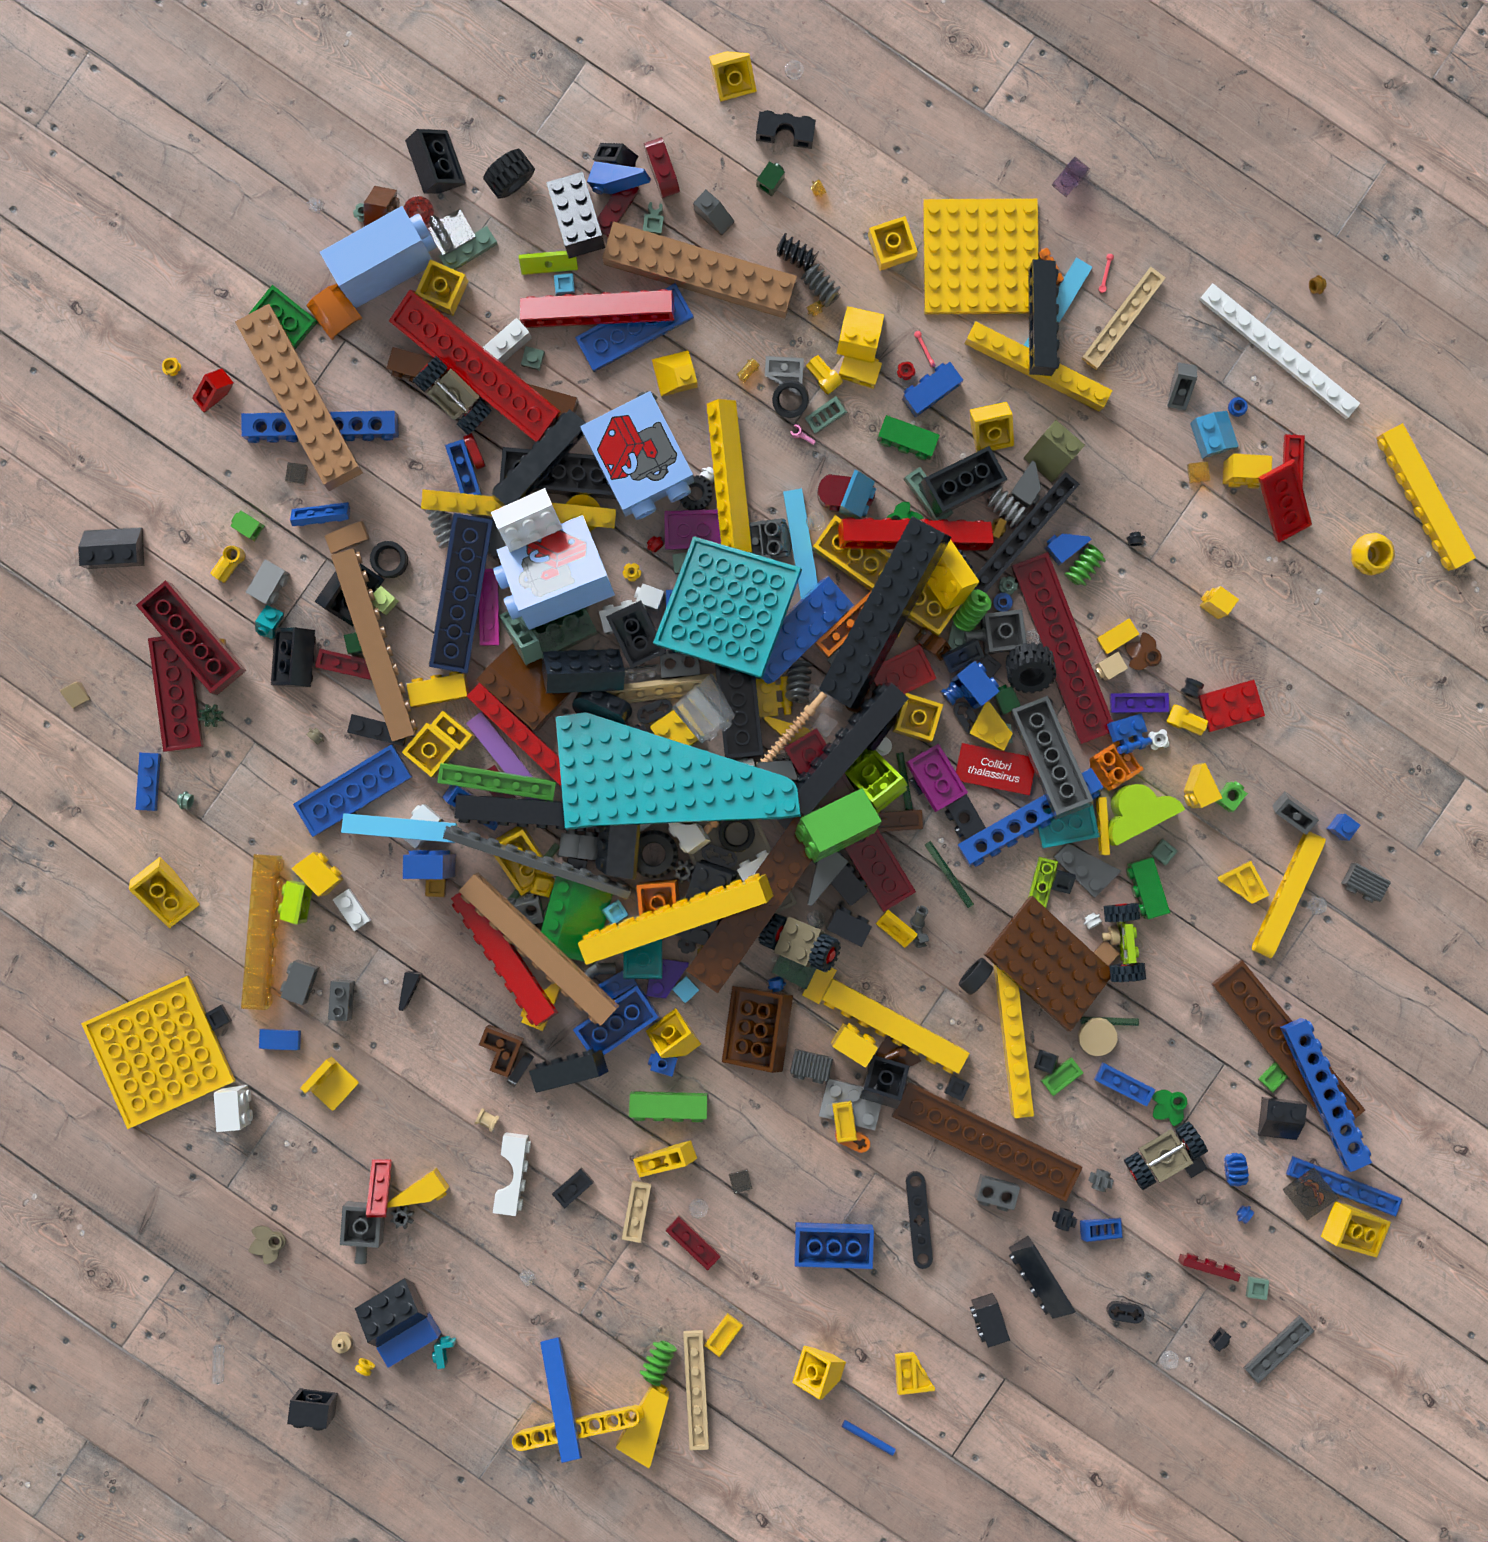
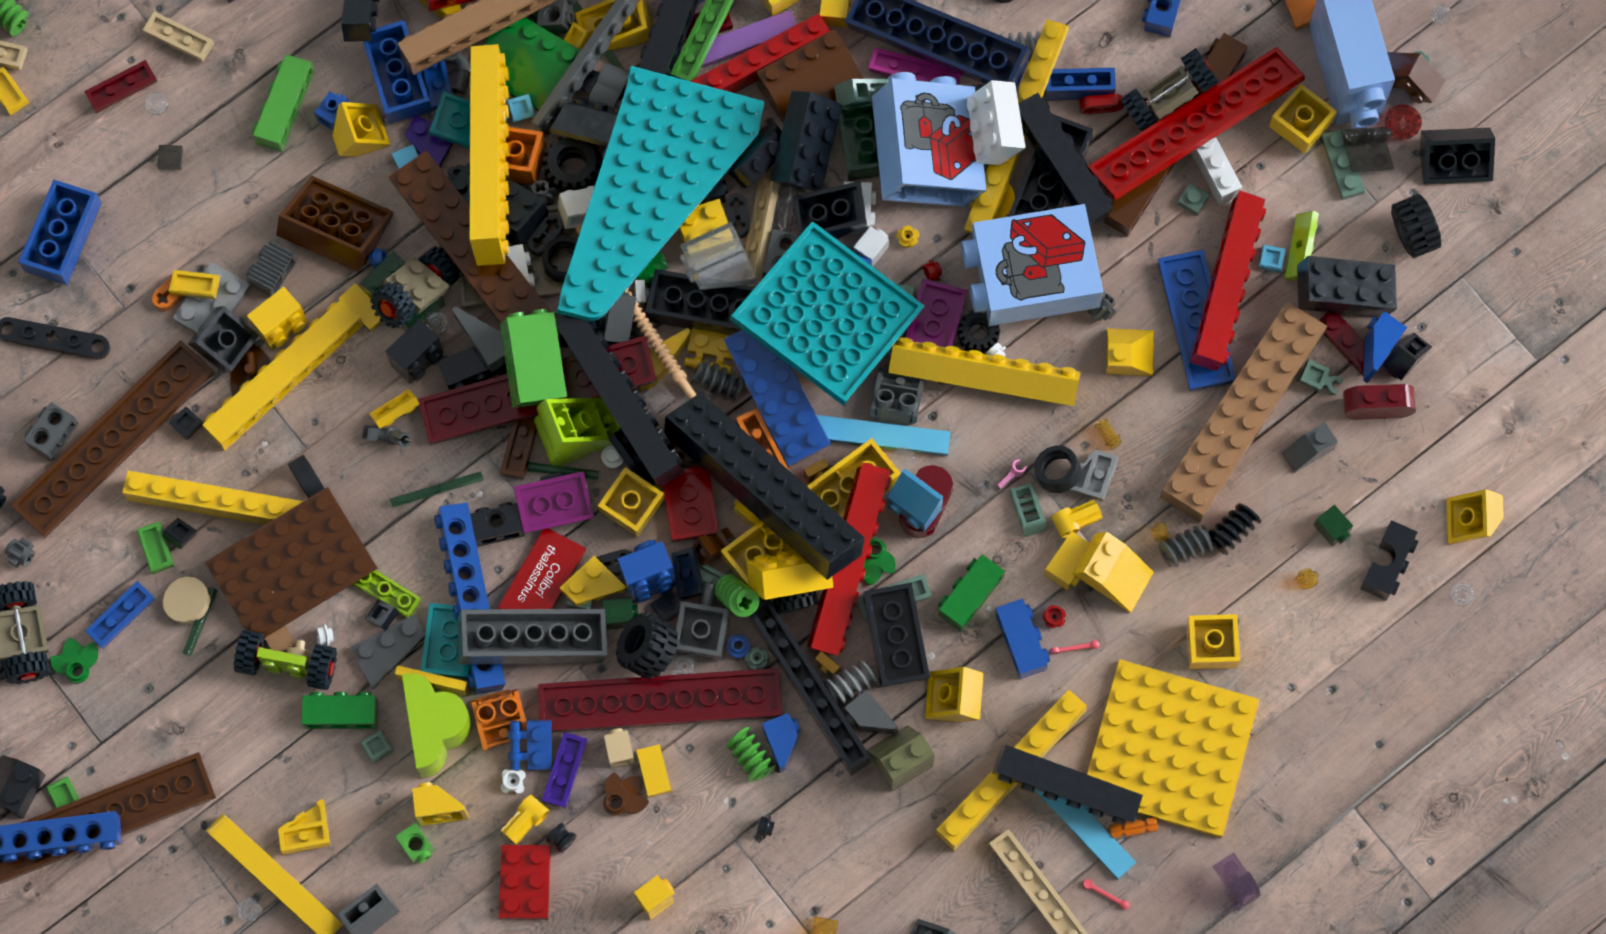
camera: 110 degrees right, 15 degrees down
(665, 1159) = (224, 83): yellow slope -> none
(847, 583) = (816, 470): none -> pearl gold plate

